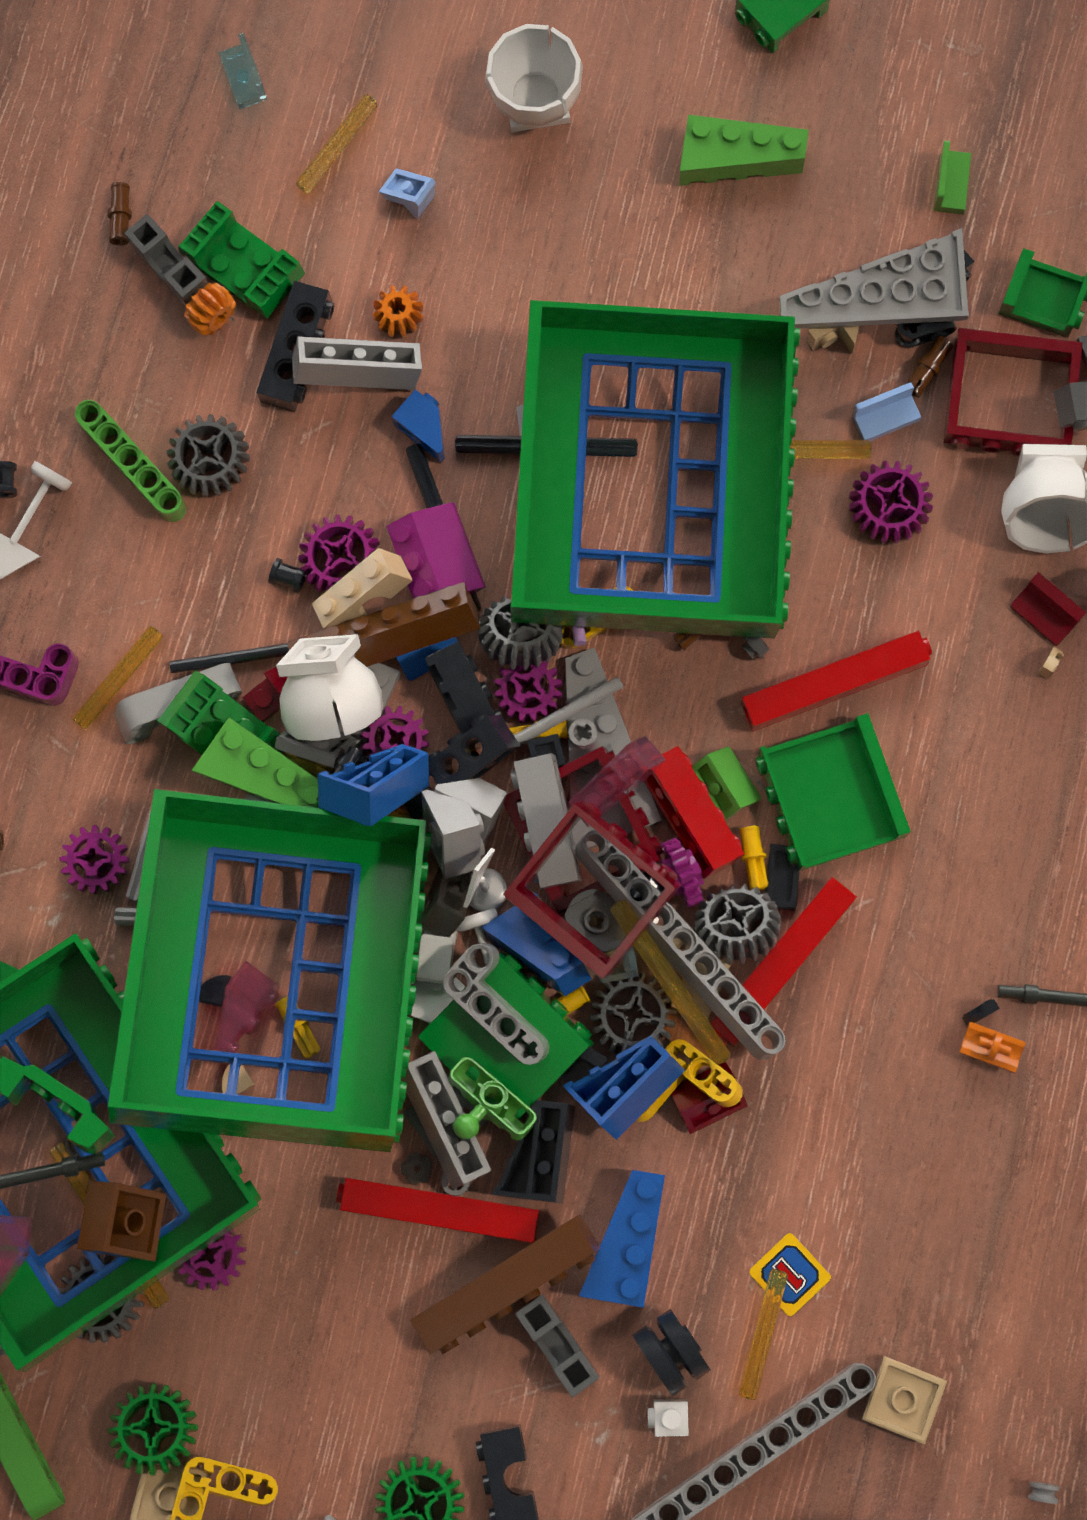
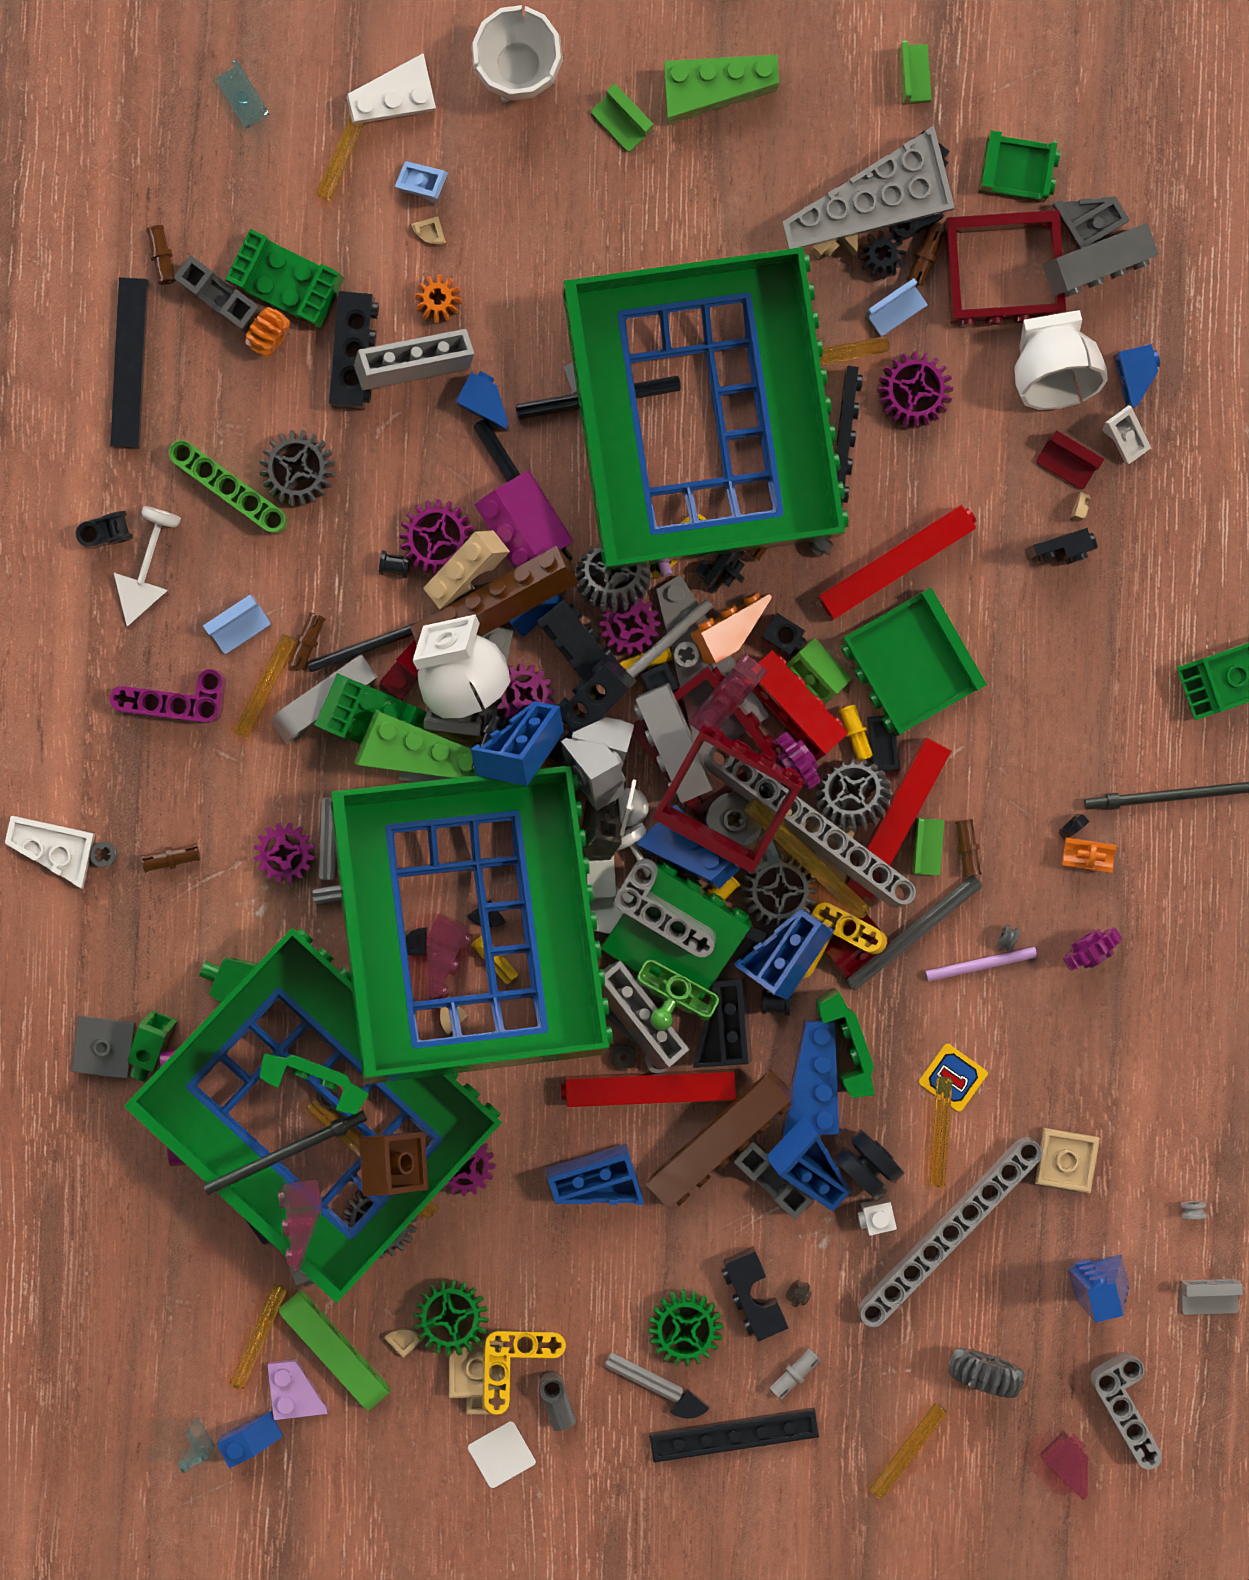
camera: 20 degrees left, 10 degrees up
(59, 316) = (129, 362): none -> black tile
(93, 1446) = (403, 1340): none -> tan tile
(105, 605) = (237, 624): none -> light blue panel
(174, 637) = (307, 641): none -> reddish brown pin
(307, 983) = (495, 918): none -> black tile
(356, 1301) = (596, 1179): none -> blue wedge
(398, 99) = (394, 94): none -> white wing
(406, 244) = (430, 231): none -> tan tile
(560, 1491) = (798, 1293): none -> clear smoke plate
(601, 1337) = (808, 1165): none -> blue wedge
(602, 1142) = (774, 1003): none -> black bush
(632, 718) = (726, 634): none -> slope
(633, 168) = (622, 118): none -> bright green panel
(642, 652) = (723, 572): none -> black hips
(667, 1158) = (857, 1080): none -> green plate
(694, 720) = (771, 634): none -> black brick
(776, 1096) = (915, 932): none -> dark grey axle
(805, 536) = (846, 436): none -> black plate
(810, 1002) = (927, 846): none -> bright green panel
(846, 1148) = (980, 964): none -> lavender bar
(856, 1012) = (968, 848): none -> reddish brown pin
(875, 347) = (887, 264): none -> black gear
(883, 1124) = (1008, 938): none -> dark grey bush
(977, 1154) = (1092, 948): none -> magenta gear
(1029, 697) = (1069, 547): none -> black plate

